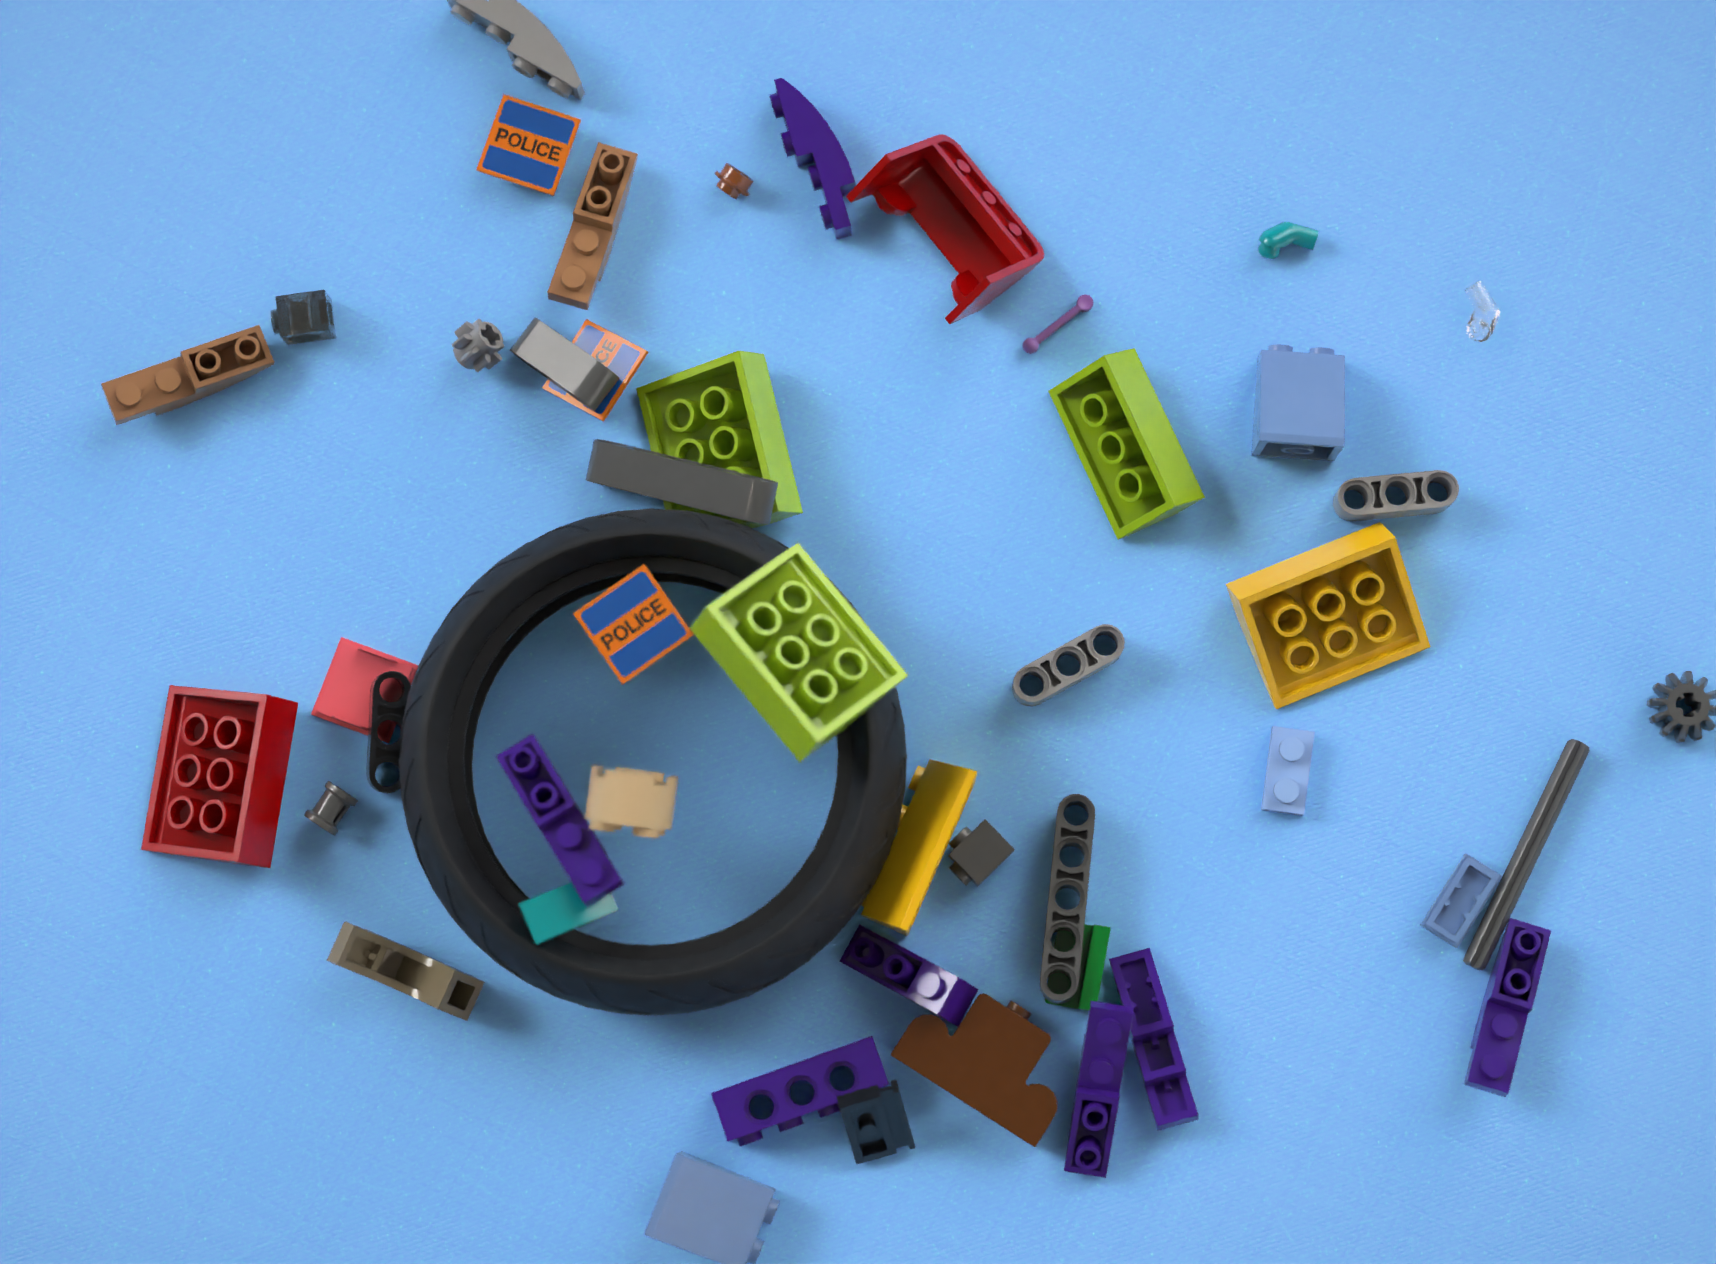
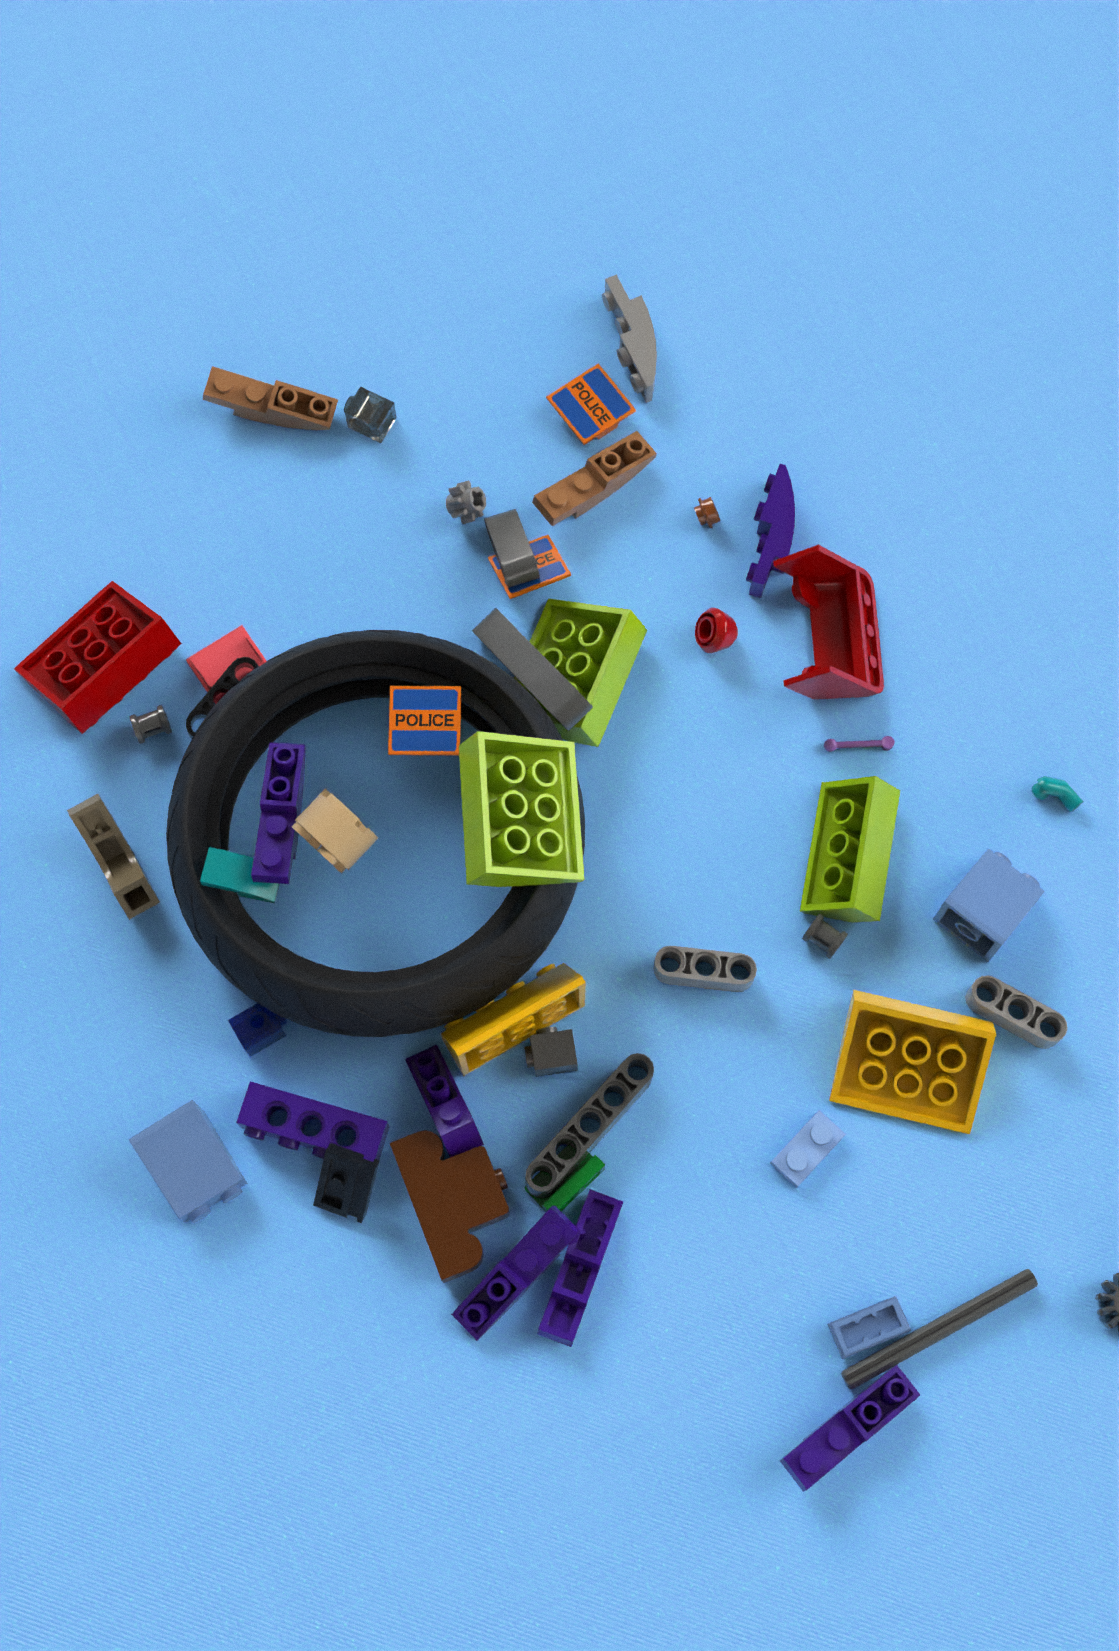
camera: 30 degrees right, 10 degrees down
(675, 1037) = (257, 1028): none -> clear blue brick
(833, 306) = (715, 630): none -> red cone
(1161, 549) = (824, 936): none -> dark grey bush

